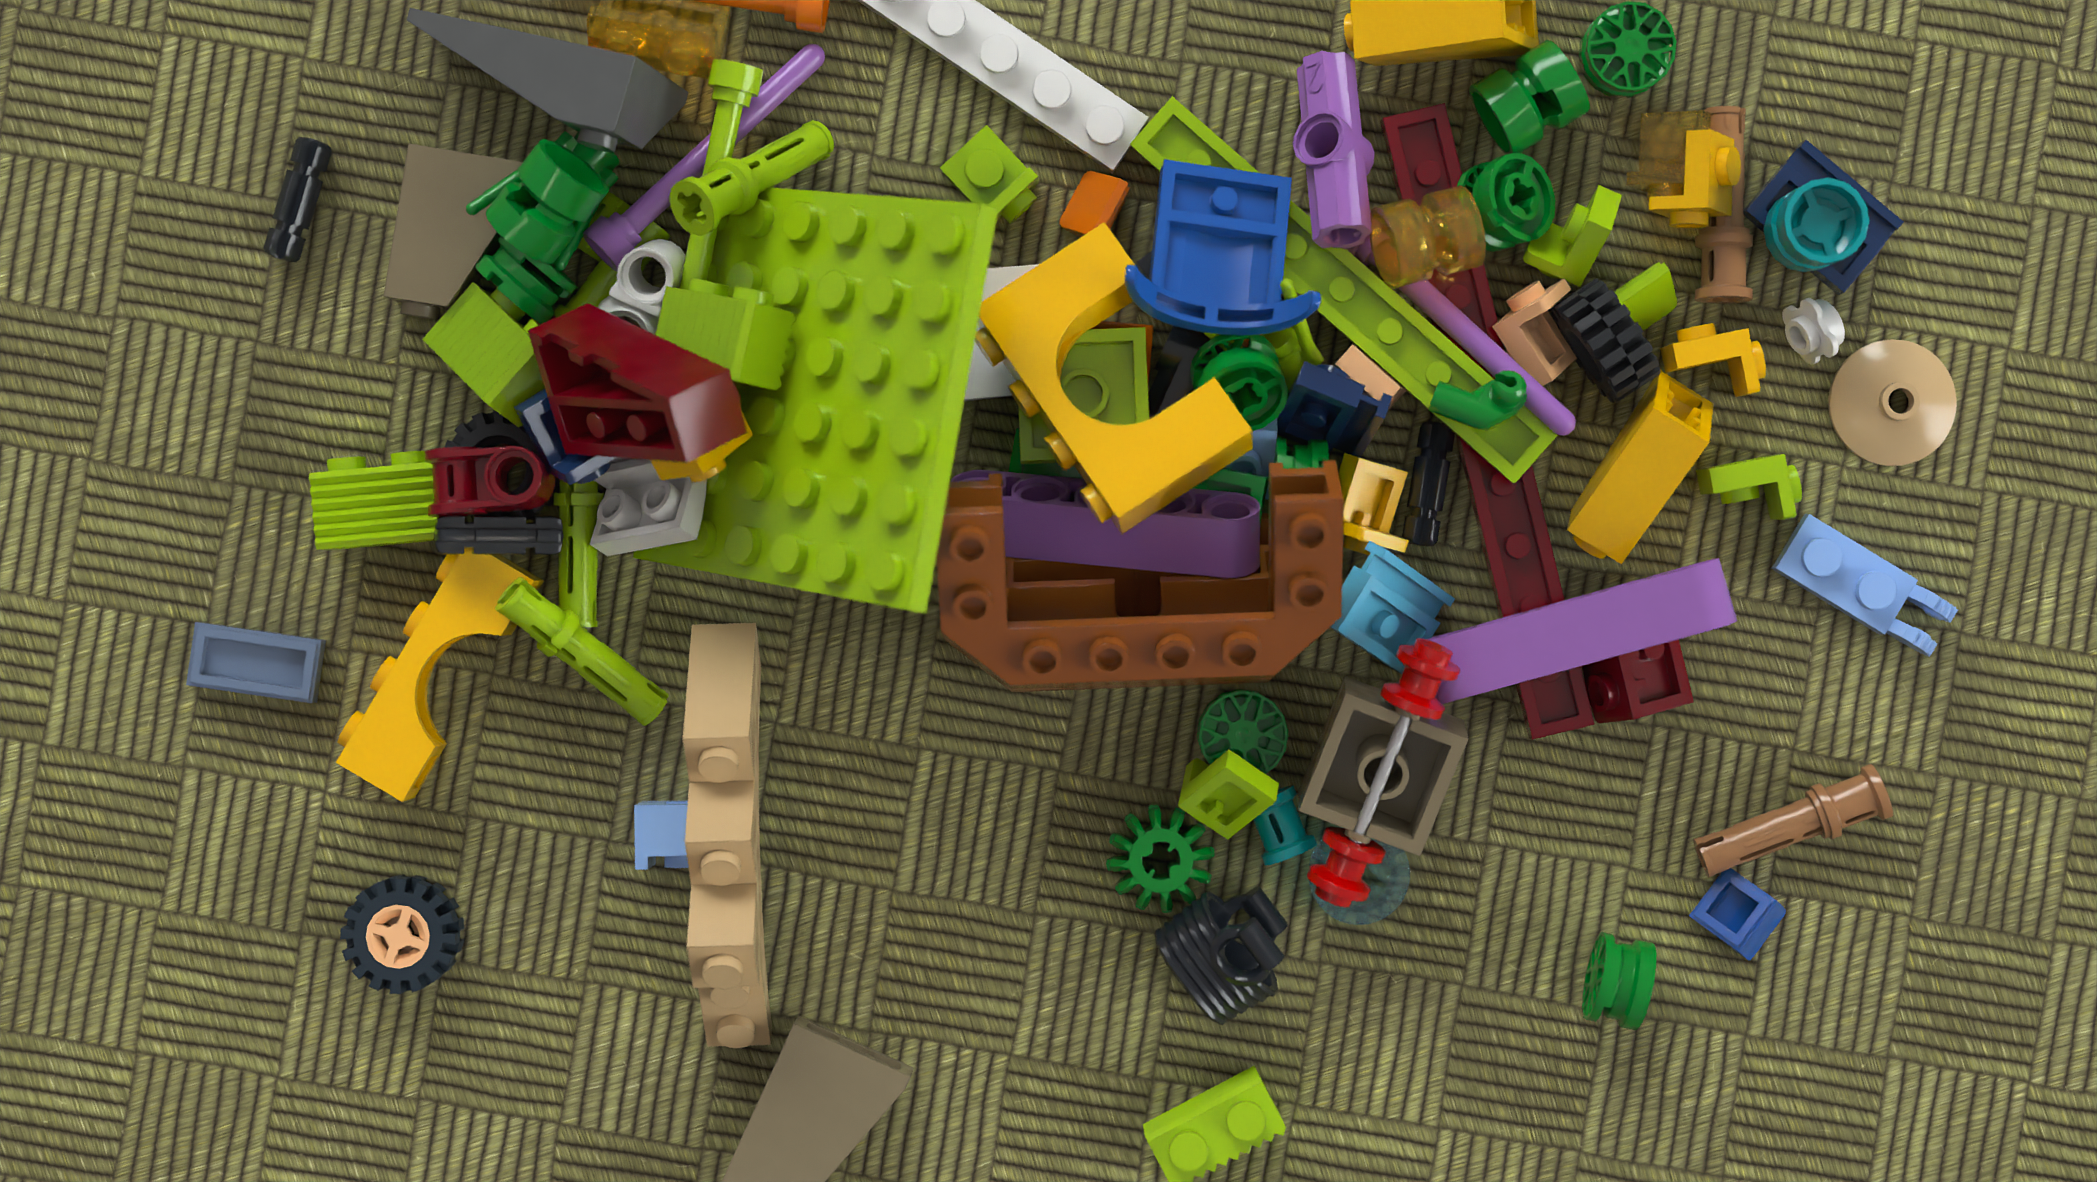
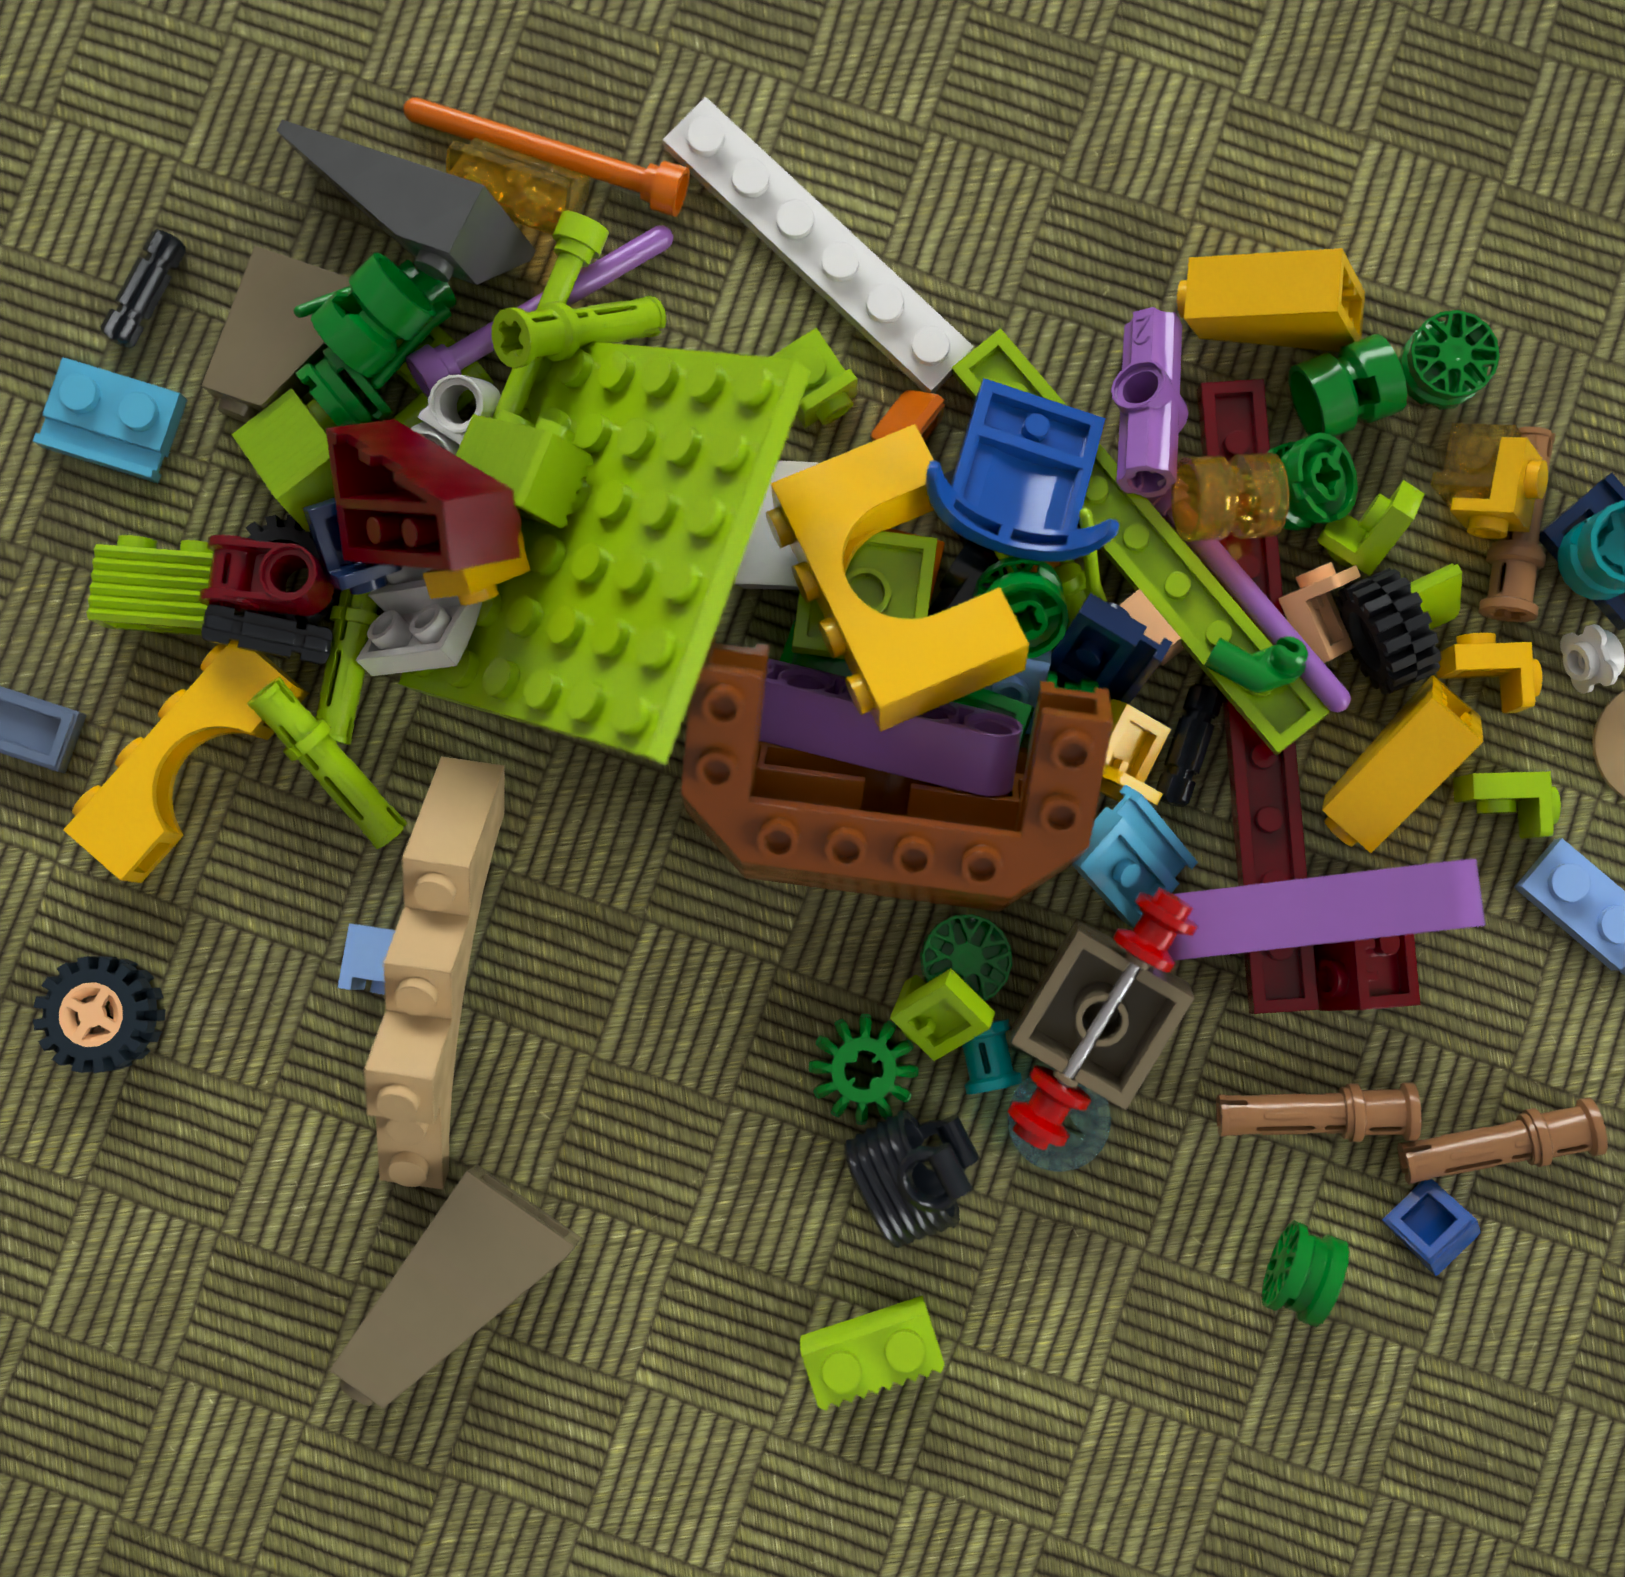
camera: 10 degrees right, 5 degrees down
(291, 339) = (110, 419): none -> medium azure plate
(1638, 819) = (1348, 1112): none -> medium nougat pin

